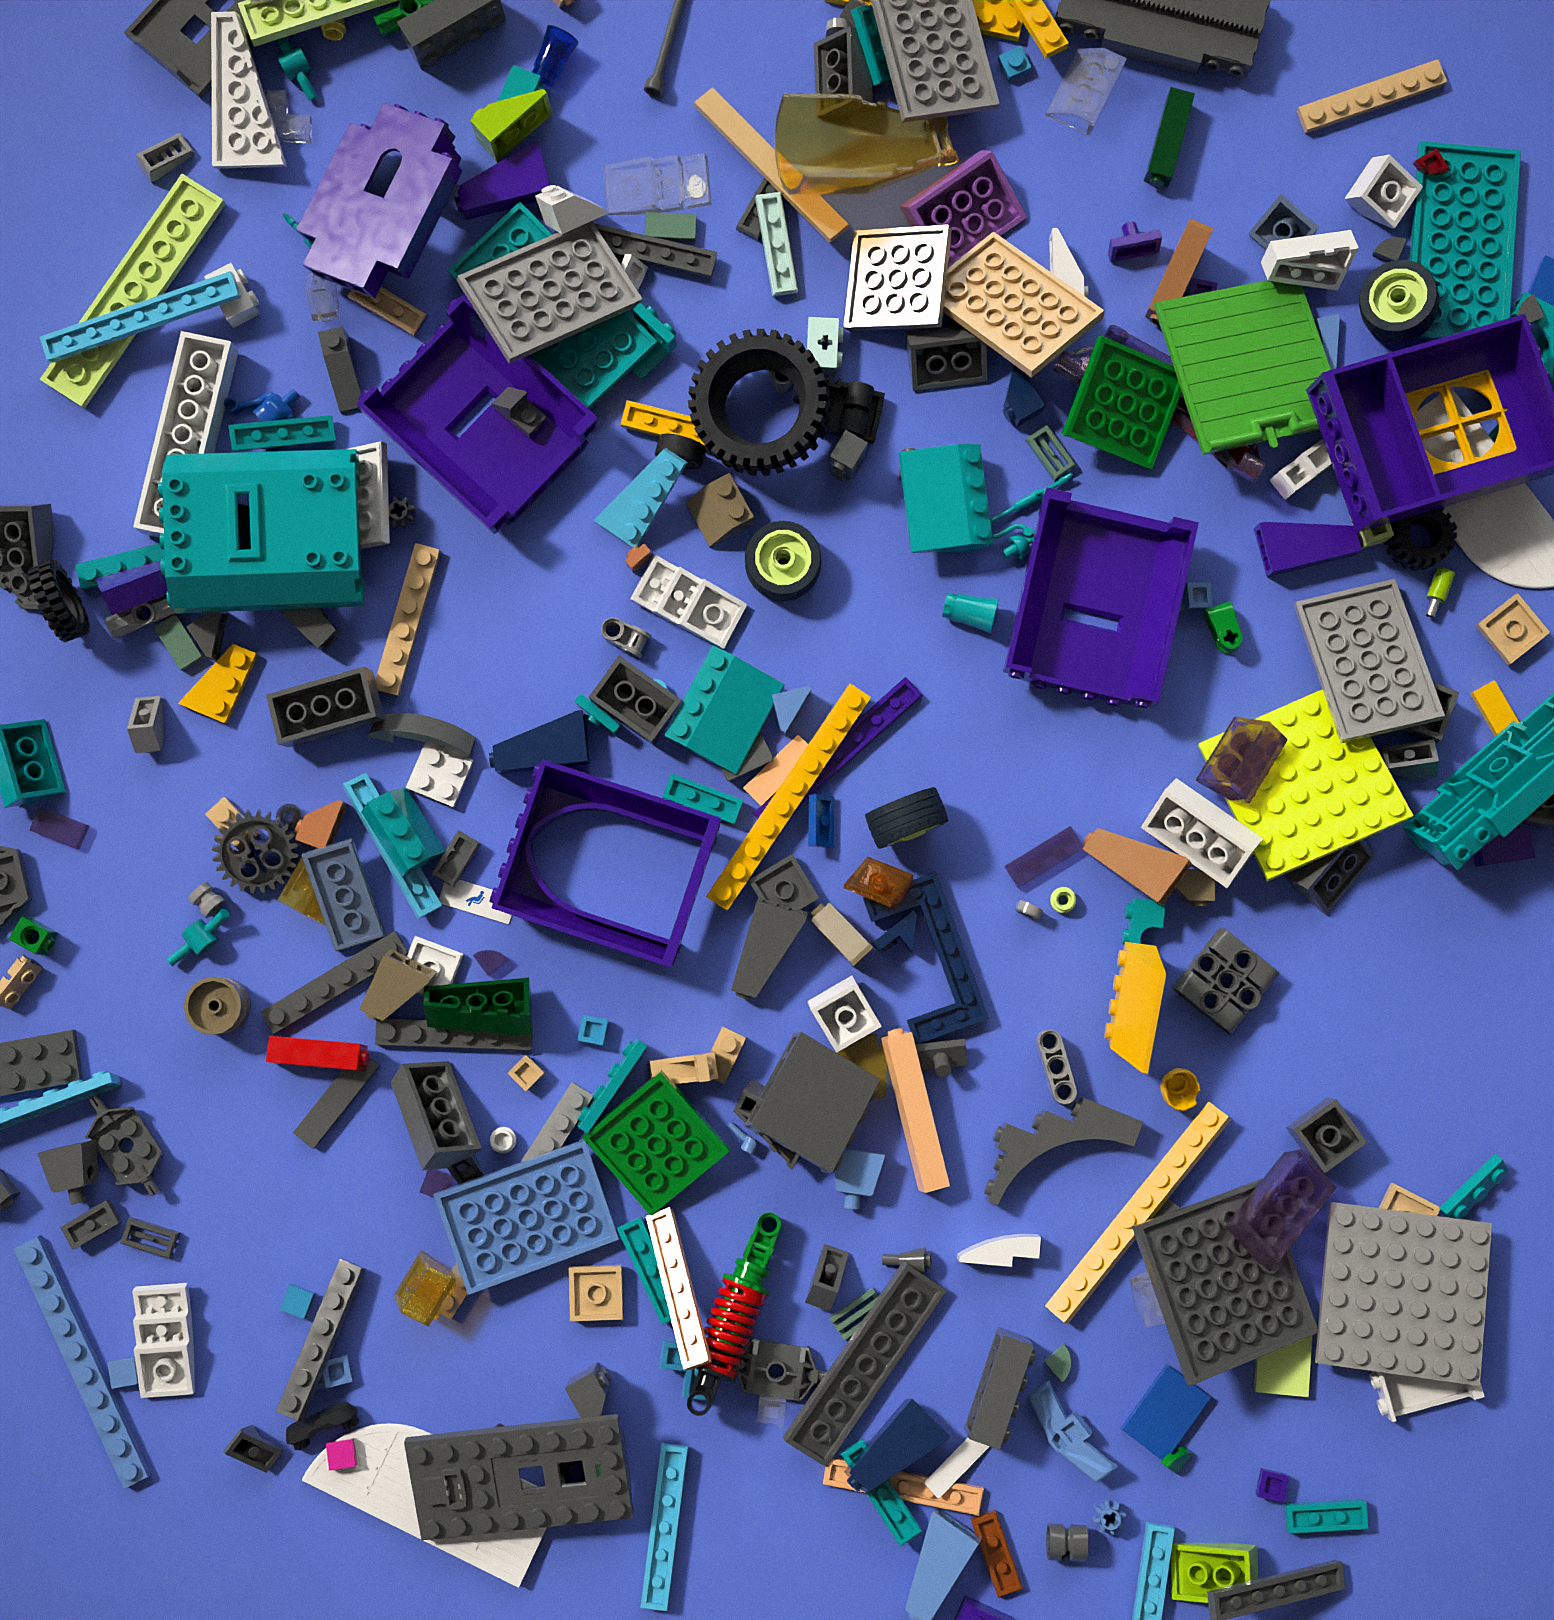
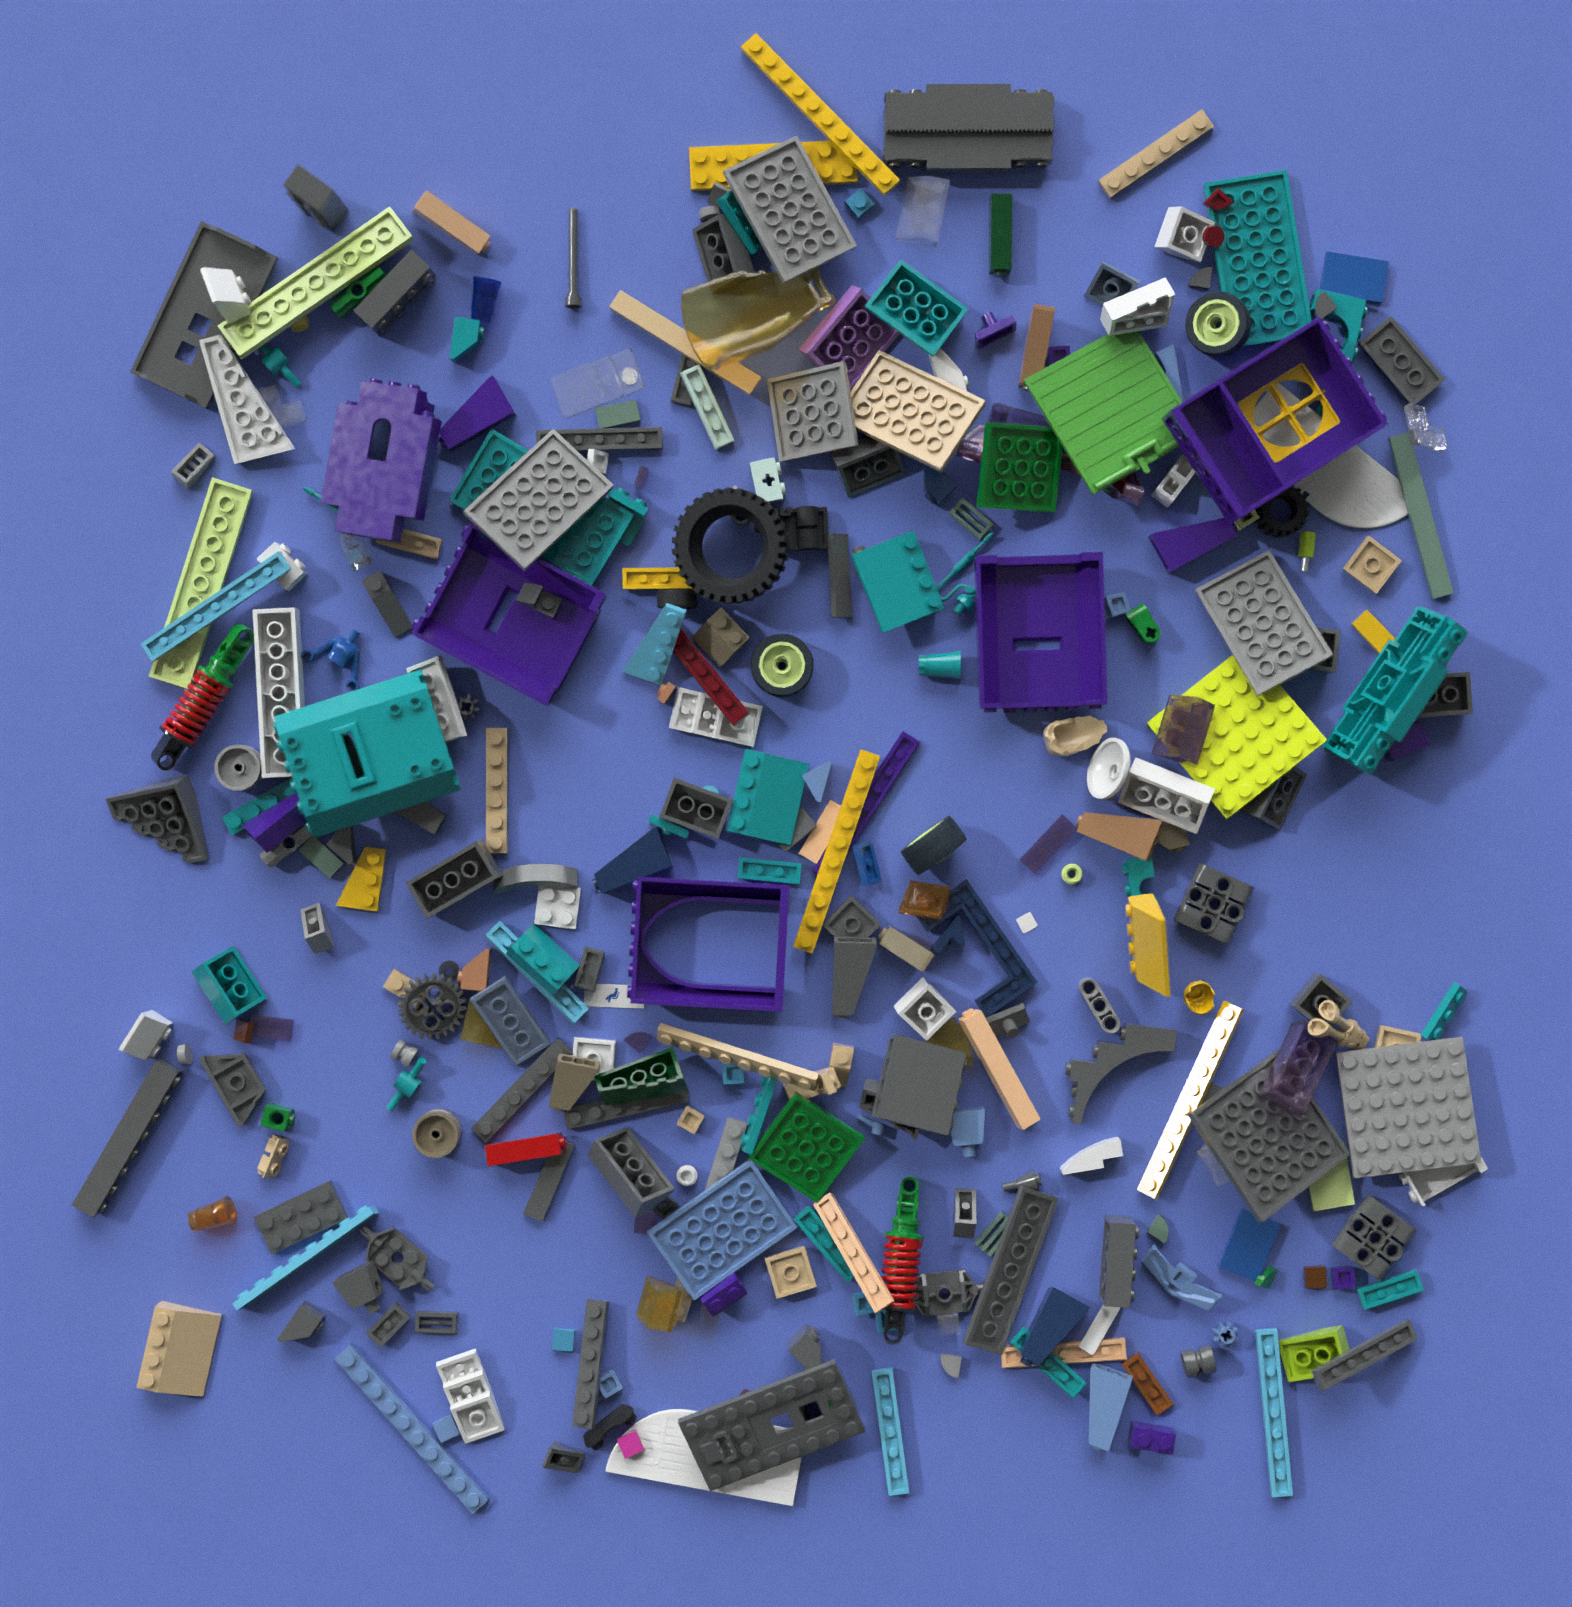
camera: 20 degrees left, 5 degrees up
(24, 822) = (243, 1031): none -> reddish brown tile
(58, 600) = (221, 852): black tyre -> none
(107, 408) = (210, 688): none -> piece
(110, 510) = (227, 767): none -> light grey wheel
(282, 433) = (355, 669): teal plate -> none
(506, 1297) = (724, 1294): none -> dark purple brick
(509, 121) = (462, 368): lime slope -> none
(565, 209) = (533, 426): white slope -> none
(603, 1010) = (738, 1057): none -> tan plate
(627, 637) = (675, 759): light grey piece -> none
(678, 304) = (641, 478): none -> clear purple tile
(692, 554) = (709, 680): none -> dark red tile
(761, 1462) = (951, 1364): none -> light grey tile
(847, 456) = (810, 568): dark grey brick -> none
(879, 476) = (839, 575): none -> dark grey tile
(994, 944) = (1026, 922): none -> white sticker
(1029, 910) = (1052, 890): light grey tile -> none
(1051, 191) = (916, 308): none -> teal slope
(1107, 734) = (1073, 735): none -> tan hair
(1140, 783) = (1108, 768): none -> white dish
(1237, 1474) = (1315, 1276): none -> reddish brown tile
(1352, 1440) = (1371, 1261): none -> dark grey connector
(1354, 1183) = (1350, 1034): none -> tan piece
(1412, 759) = (1316, 692): dark grey slope -> none
(1417, 201) = (1213, 236): none -> dark red tile

